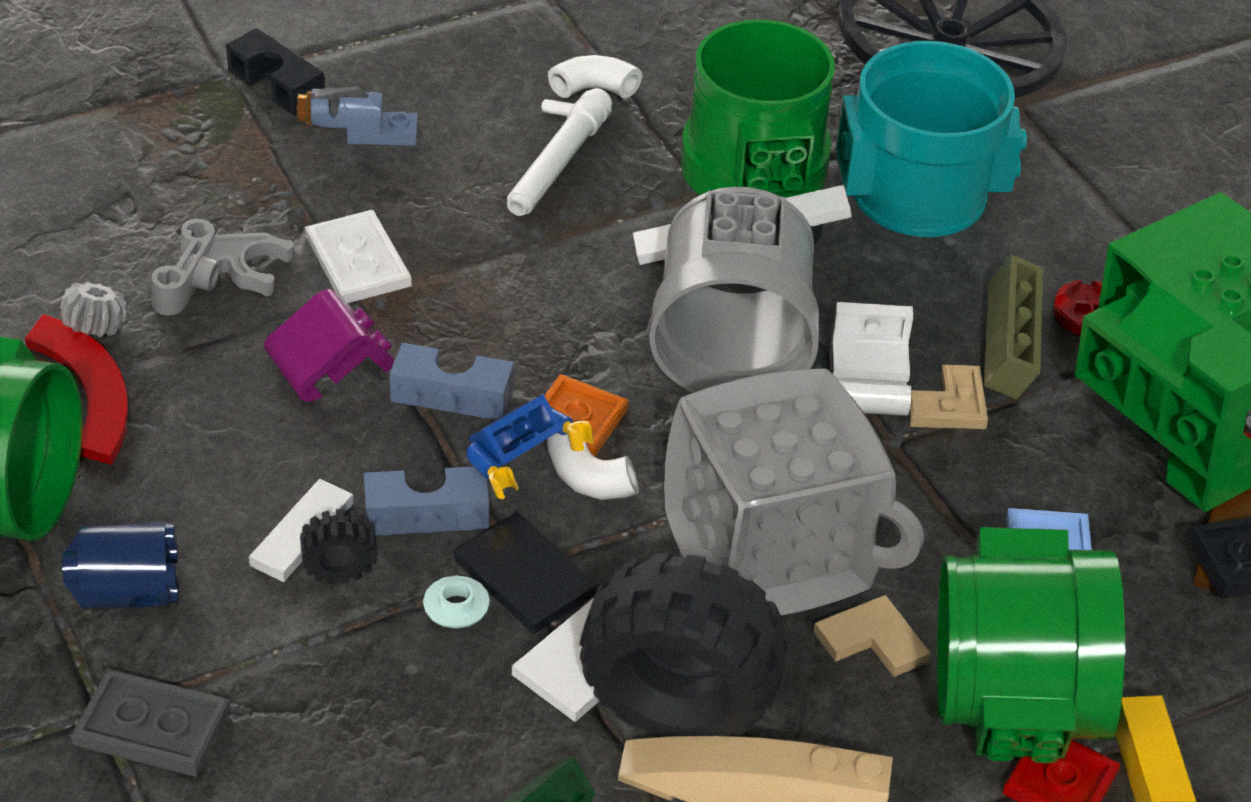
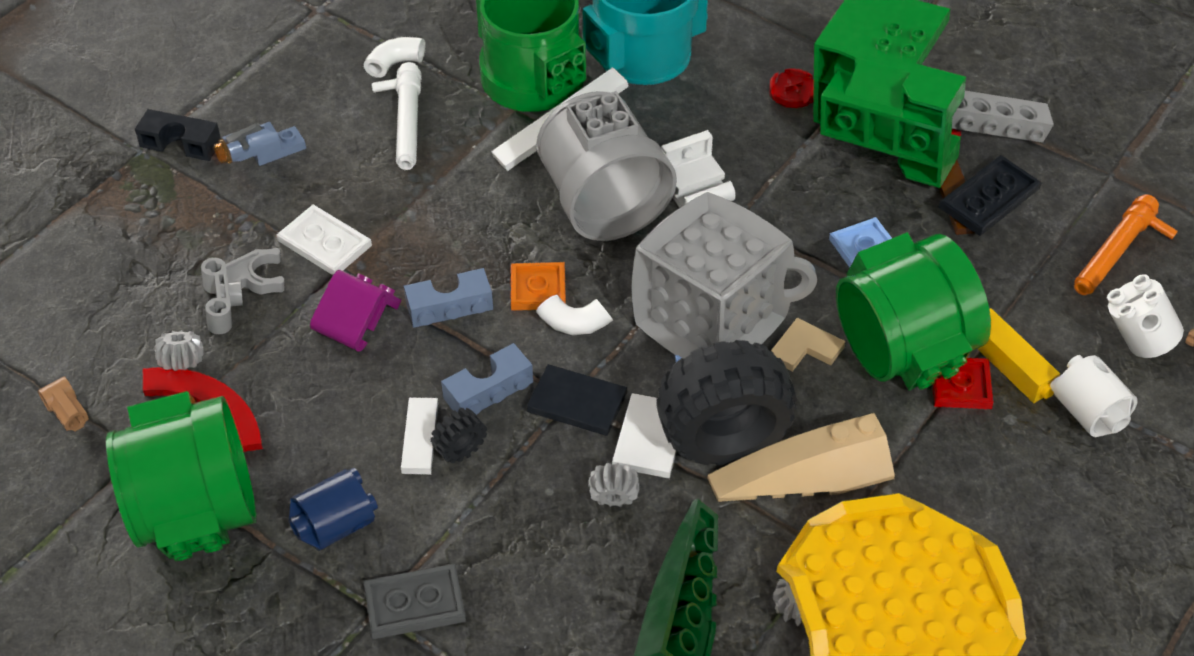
camera: 25 degrees left, 5 degrees up
(456, 614) = (552, 446): light aqua piece -> none
(486, 693) = (614, 484): none -> light grey gear
(517, 434) = (522, 314): blue torso -> none
(957, 406) = (757, 179): tan tile -> none
(1013, 327) = (763, 118): olive brick -> none

